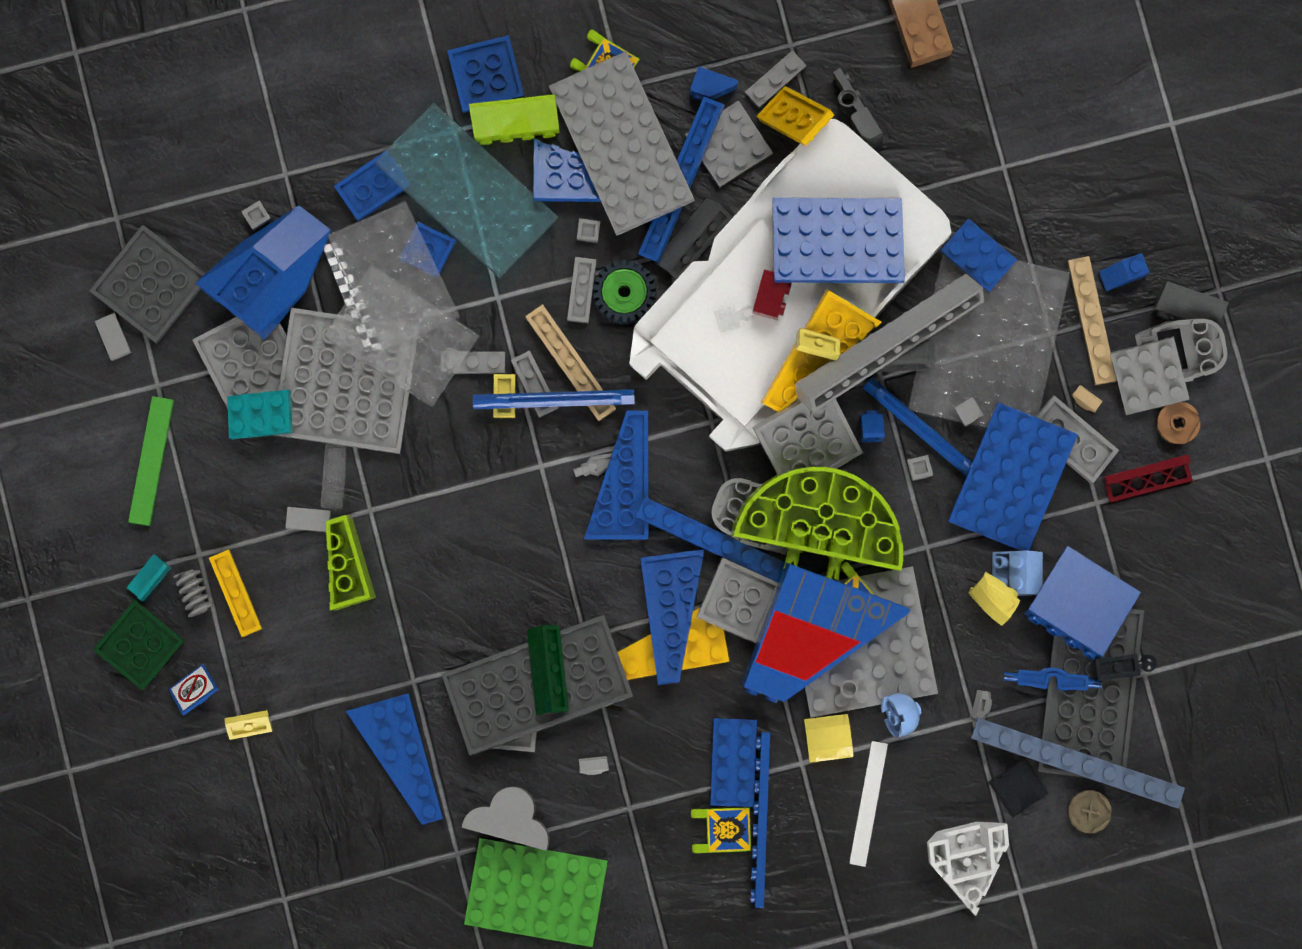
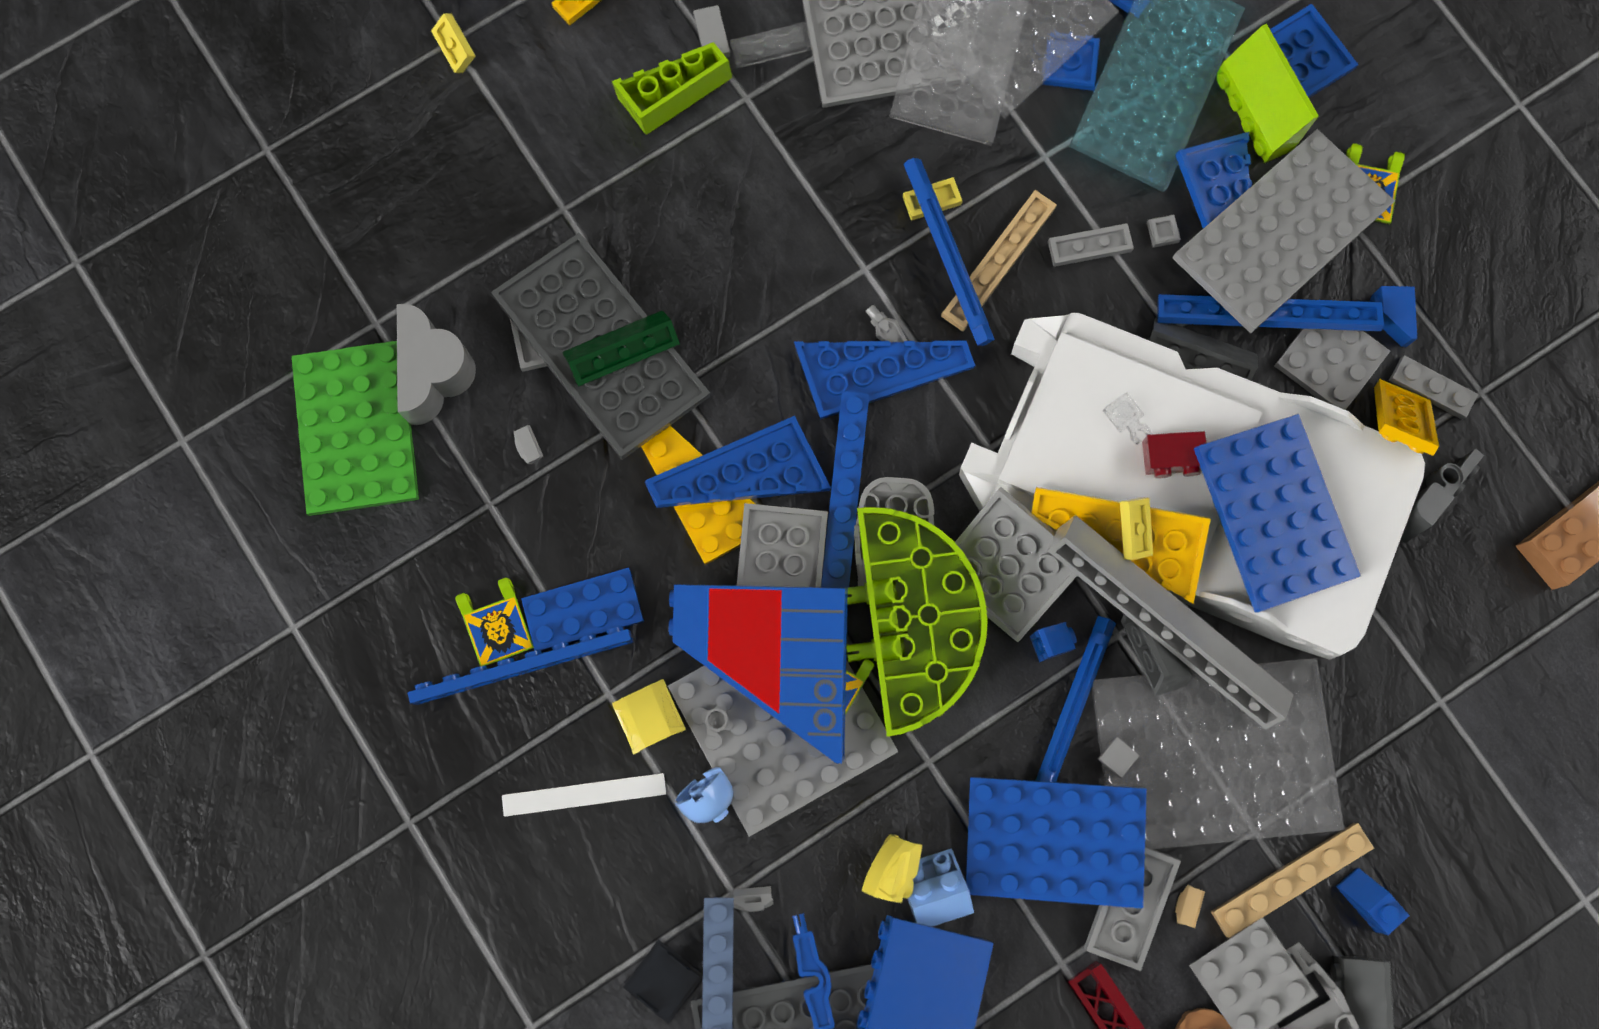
camera: 70 degrees right, 5 degrees down
(397, 743) = (484, 212): blue wing -> none
(483, 363) = (961, 162): light grey plate -> none
(531, 378) = (963, 223): light grey plate -> none
(617, 276) = (1117, 277): wheel -> none
(919, 468) = (1024, 720): light grey tile -> none
(968, 858) = (550, 944): white wedge -> none
(978, 255) = (1320, 704): blue plate -> none

